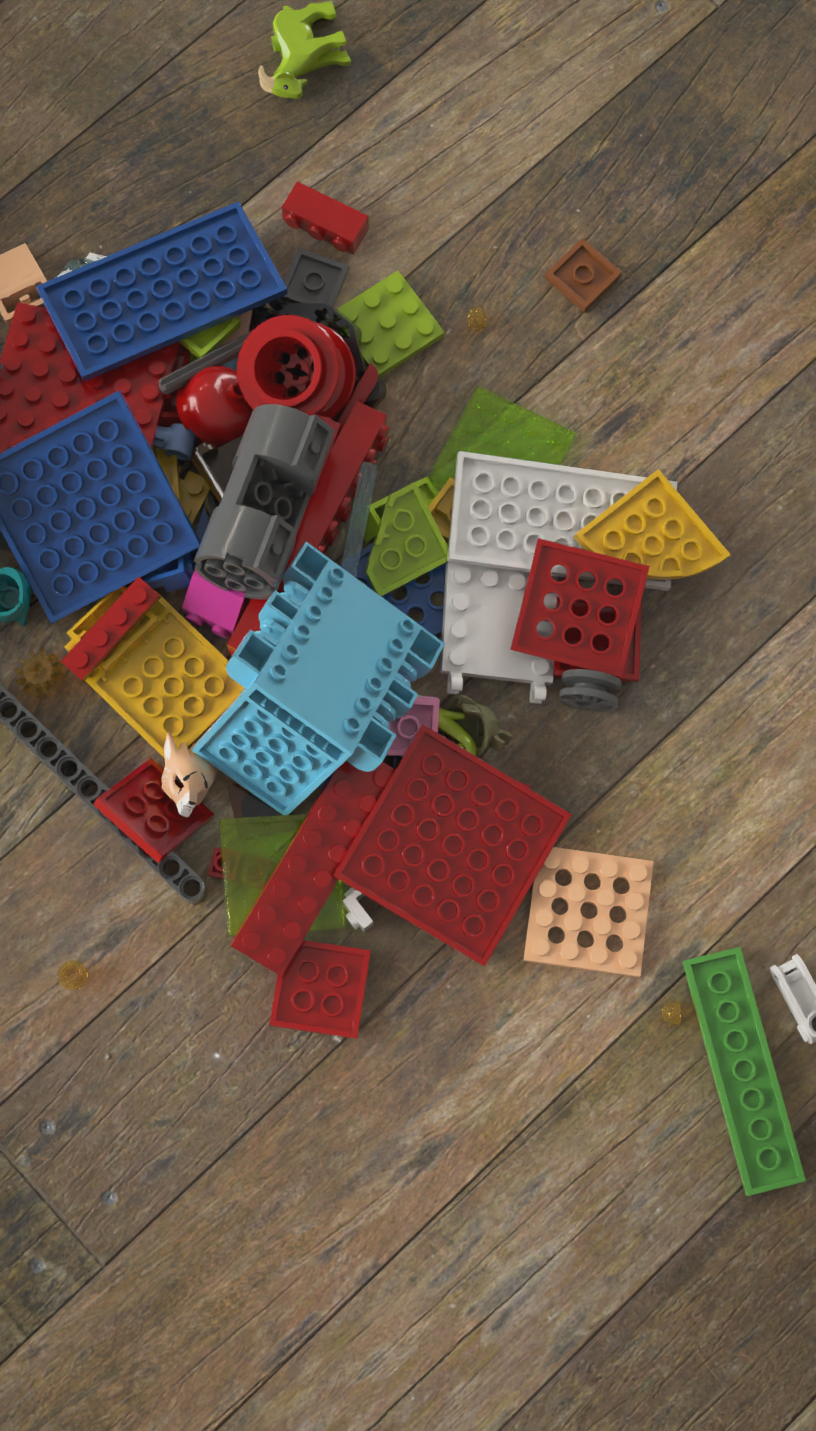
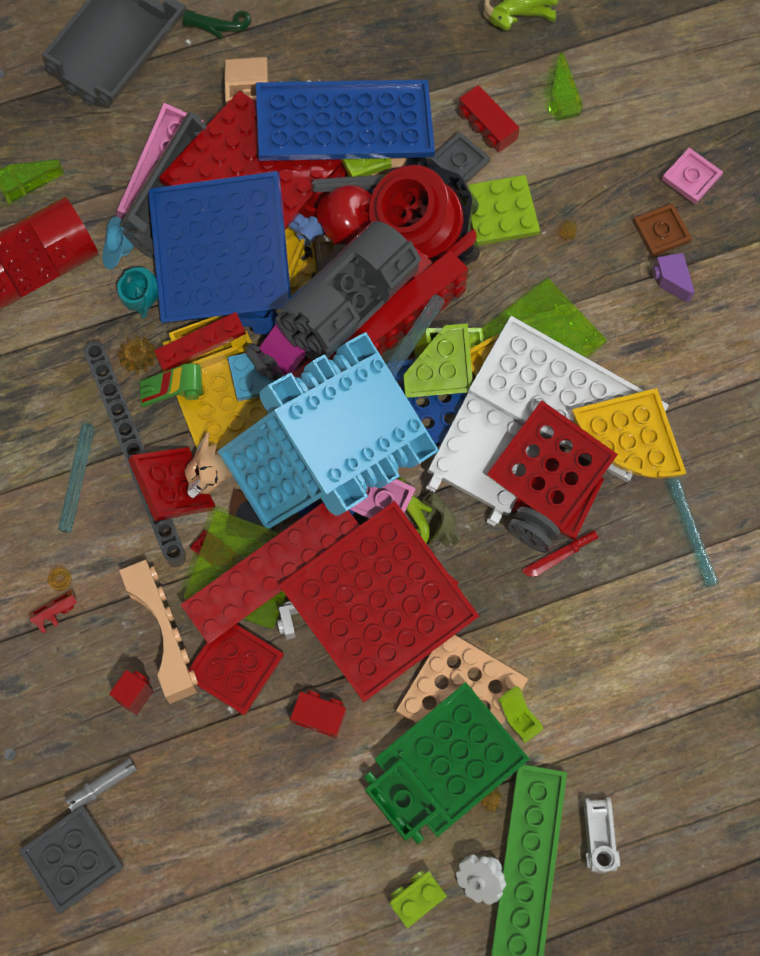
camera: 25 degrees right, 5 degrees down
(35, 849) = (76, 478): none -> clear light blue axle
(87, 1004) = (60, 604): none -> red plate
(109, 684) = (181, 381): none -> bright green door
(176, 945) = (173, 674): none -> light nougat arch
(188, 646) = (246, 379): none -> medium azure wing
(191, 620) = (261, 362): none -> dark grey piece
(219, 1067) = (132, 691): none -> red brick
(230, 1187) = (101, 784): none -> light grey pin
(236, 1283) = (71, 859): none -> dark grey plate
(403, 156) = (565, 98): none -> clear neon green slope
(440, 1000) = (319, 714): none -> red brick
(590, 196) = (692, 176): none -> bright pink plate
(604, 999) = (443, 766): none -> green plate
(620, 326) = (674, 276): none -> medium lavender slope
(623, 712) = (554, 558): none -> red piece
(637, 1155) = (417, 898): none -> lime bracket
(663, 908) = (518, 715): none -> lime bracket
(698, 1103) = (481, 878): none -> white plant
(793, 651) = (705, 566): none -> clear light blue piece

